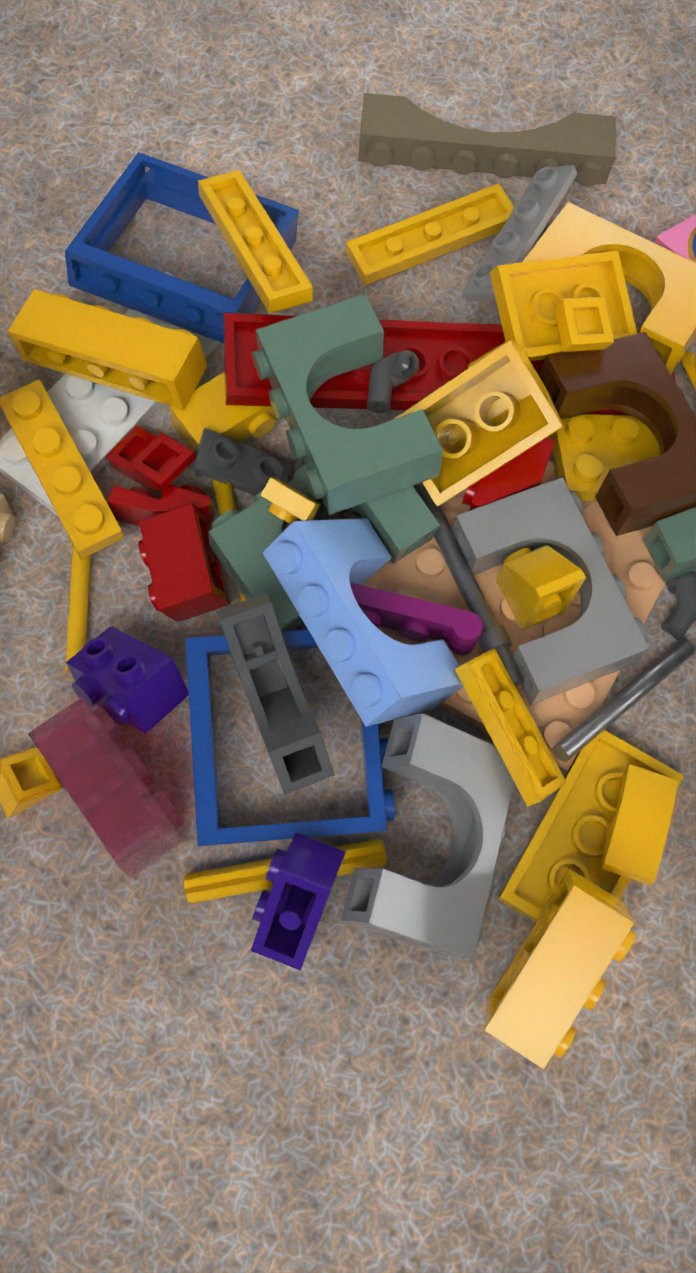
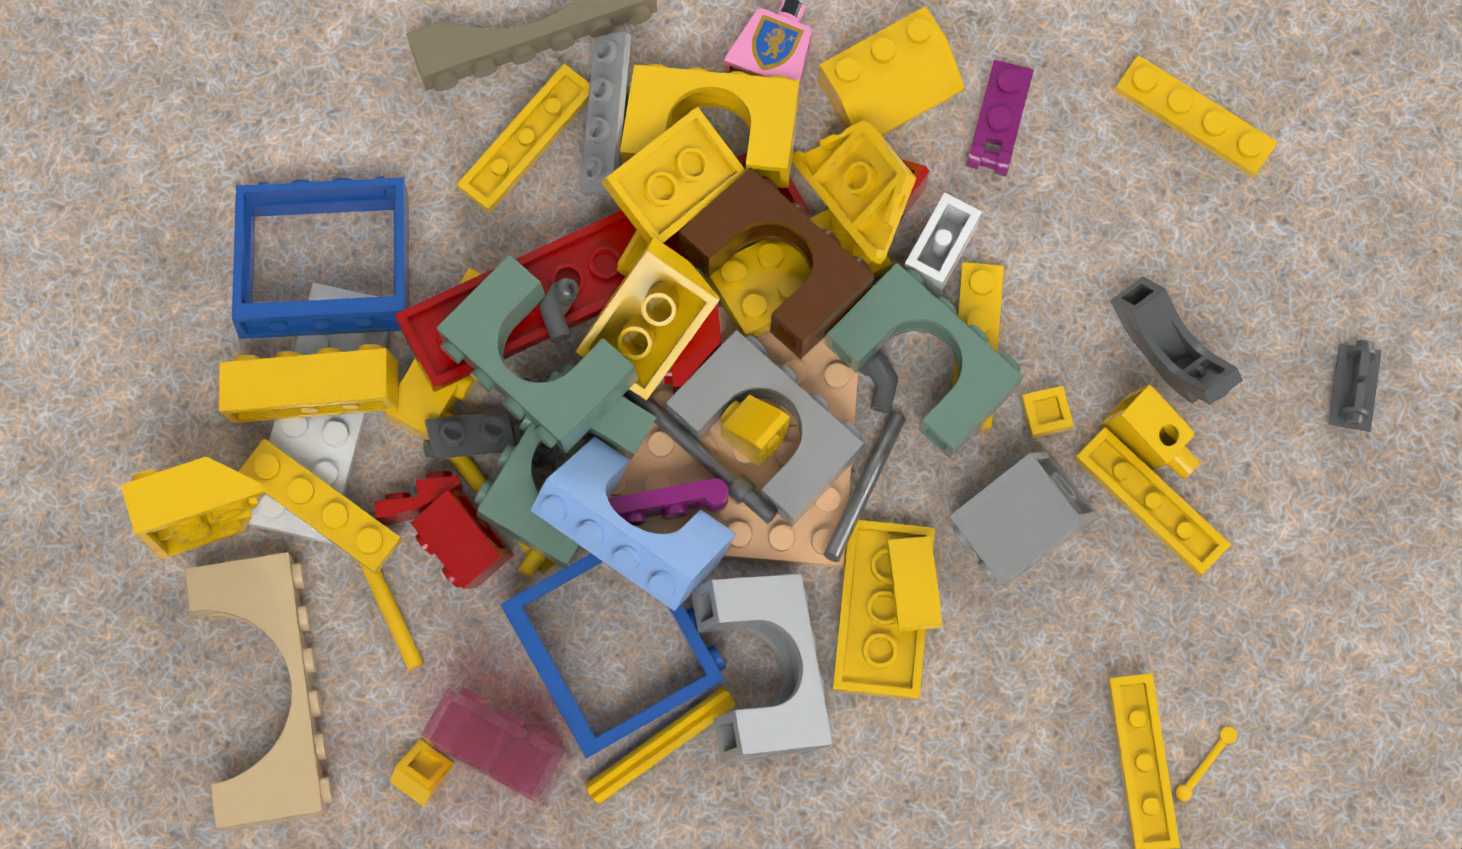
camera: 20 degrees left, 5 degrees up
(127, 679) = (467, 656): dark purple brick -> none
(150, 458) = (389, 462): red slope -> none
(255, 242) = (386, 234): yellow plate -> none
(275, 694) = (594, 618): dark grey arch -> none
(288, 502) = (532, 459): yellow plate -> none
(296, 901) = (682, 763): dark purple brick -> none
(511, 727) = (783, 554): yellow tile -> none
(559, 969) = (896, 721): yellow brick -> none
(583, 324) = (697, 193): yellow plate -> none

